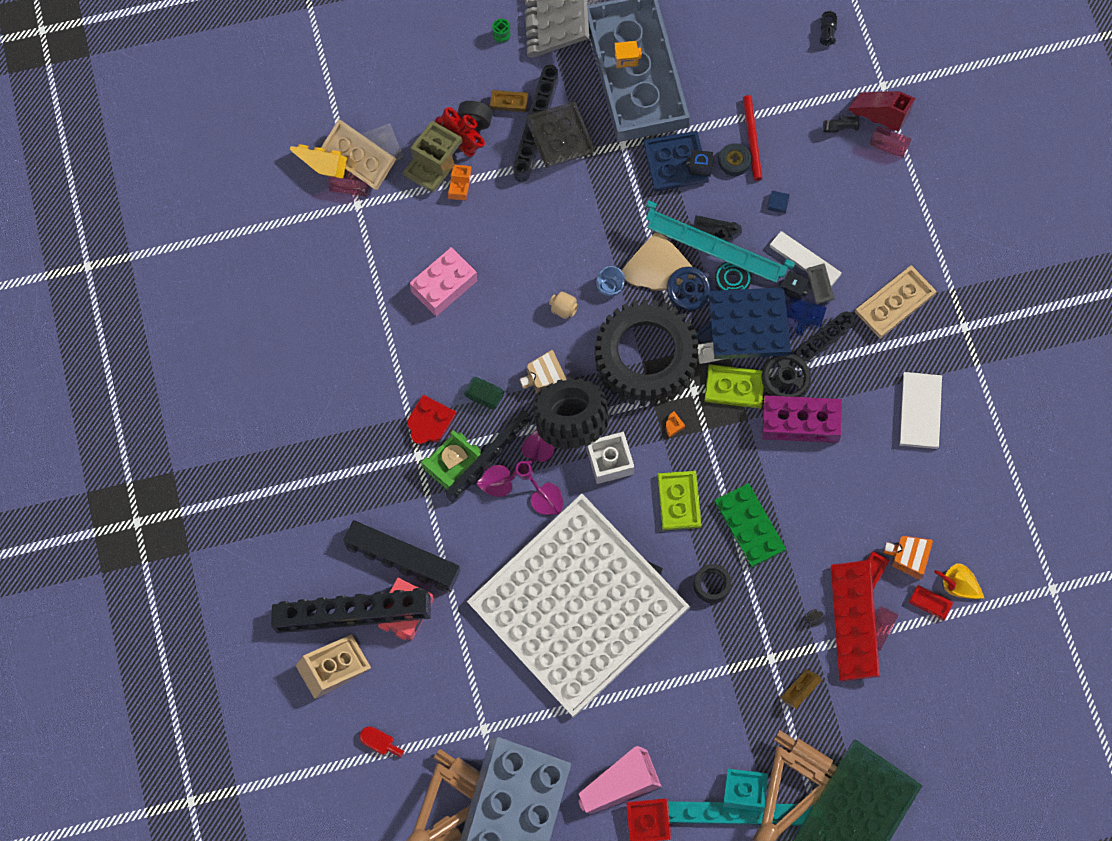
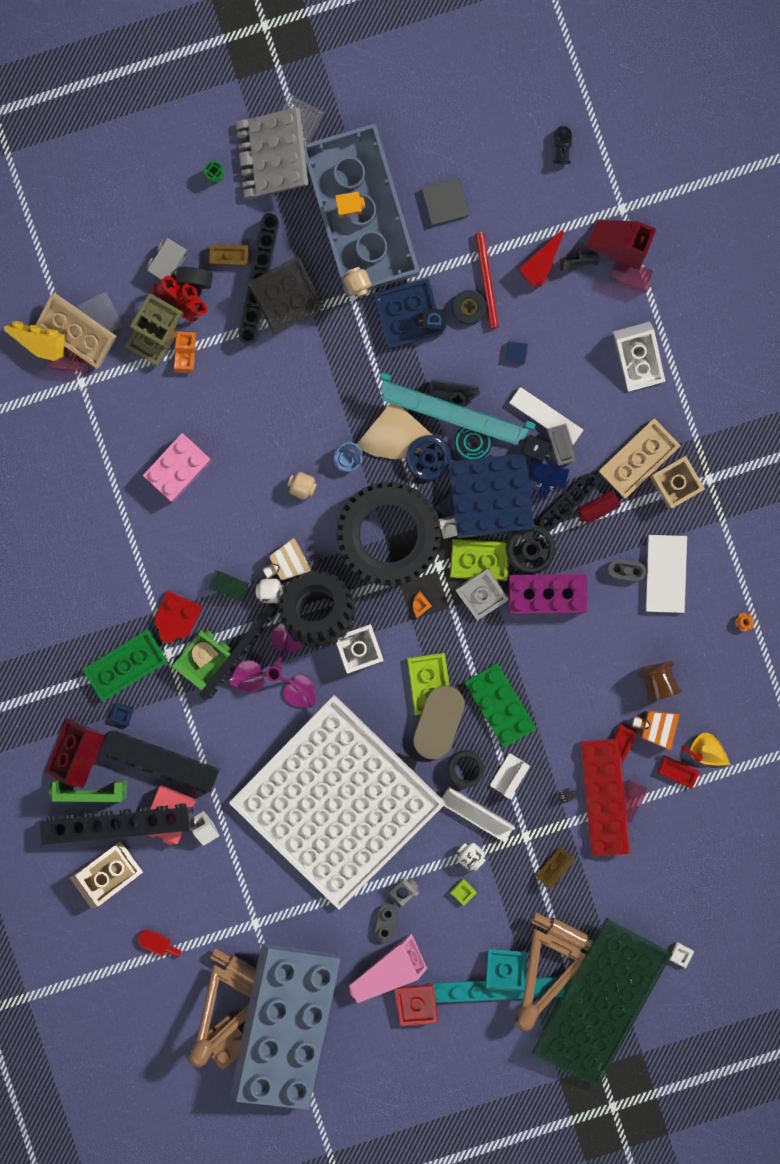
camera: 10 degrees left, 20 degrees up
(315, 543) = (74, 753): none -> dark red slope
(325, 581) = (119, 793): none -> bright green panel
(365, 510) = (122, 714): none -> dark blue tile
(374, 462) = (125, 665): none -> green plate
(439, 624) = (204, 828): none -> white brick
(451, 97) = (167, 260): none -> light grey brick
(523, 399) = (269, 590): none -> white head
(621, 735) = (386, 923): none -> dark grey plate
(630, 119) = (357, 282): none -> tan head
(646, 696) = (412, 889): none -> light grey bracket
(686, 535) = (438, 722): none -> dark tan tile
(703, 709) = (463, 892): none -> lime tile
(713, 671) = (471, 856): none -> white head
(716, 69) = (445, 202): none -> dark grey tile
(722, 629) = (477, 814): none -> white panel
(736, 415) = (482, 593): none -> light grey plate
(756, 594) = (509, 775): none -> white panel
(802, 126) = (539, 265): none -> red slope
(854, 343) = (598, 507): none -> dark red brick
(881, 401) = (626, 570): none -> dark grey plate
(897, 210) = (639, 356): none -> white slope
(913, 506) = (659, 680): none -> reddish brown hat
(931, 790) = (681, 954): none -> white tile
(932, 323) = (677, 482): none -> tan brick
(994, 460) = (739, 622): none -> orange plate

